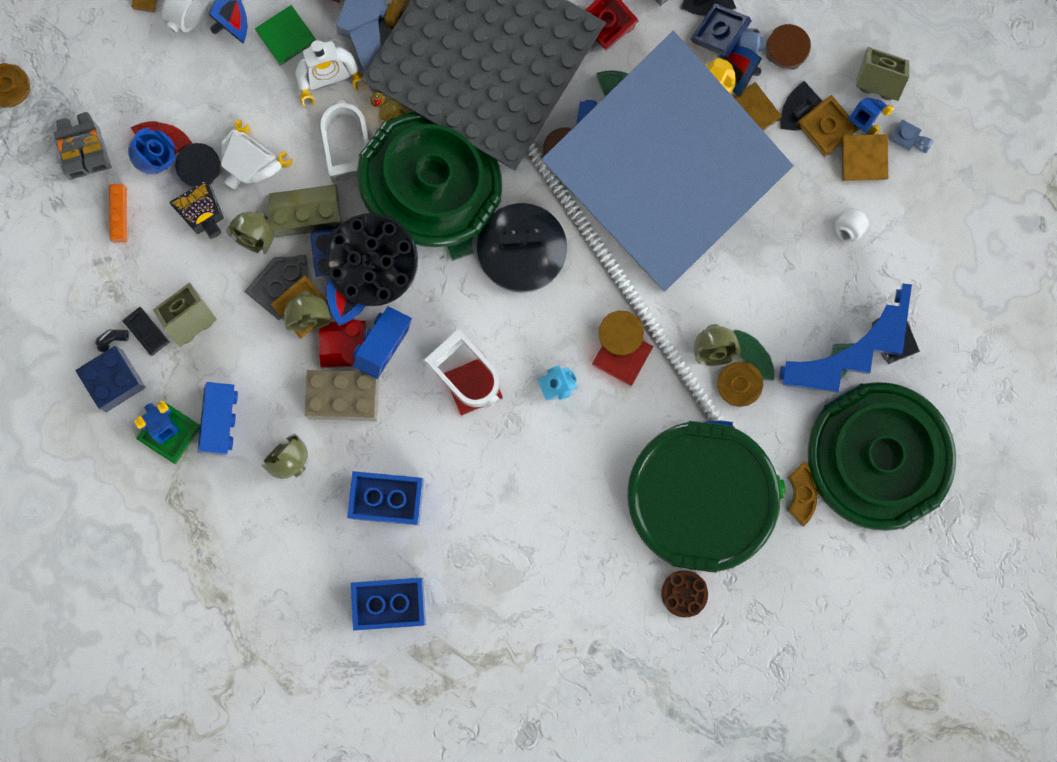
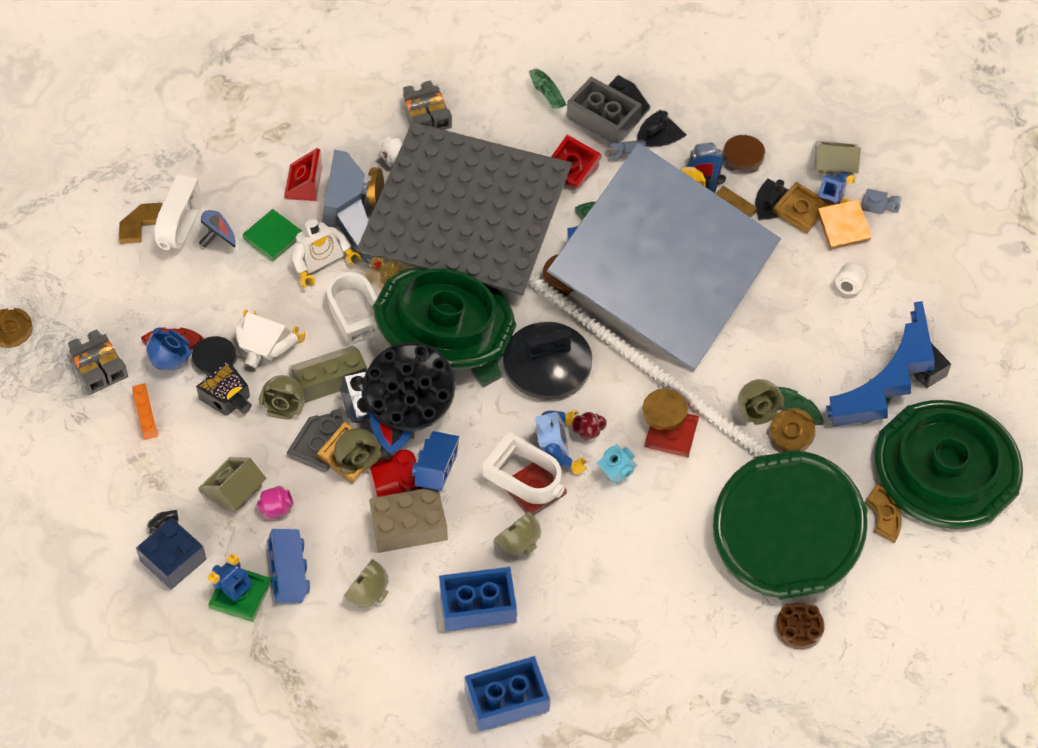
camera: 10 degrees left, 25 degrees down
(146, 331) = (195, 508): black tile -> none
(220, 346) = (275, 502): none -> dark pink head
(443, 440) = (520, 536): none -> olive cylinder
(502, 341) = (553, 438): none -> torso
(542, 330) = (588, 425): none -> dark red animal
(673, 12) = (625, 147): none -> sand blue plate
(720, 29) = (680, 148): dark blue tile -> none

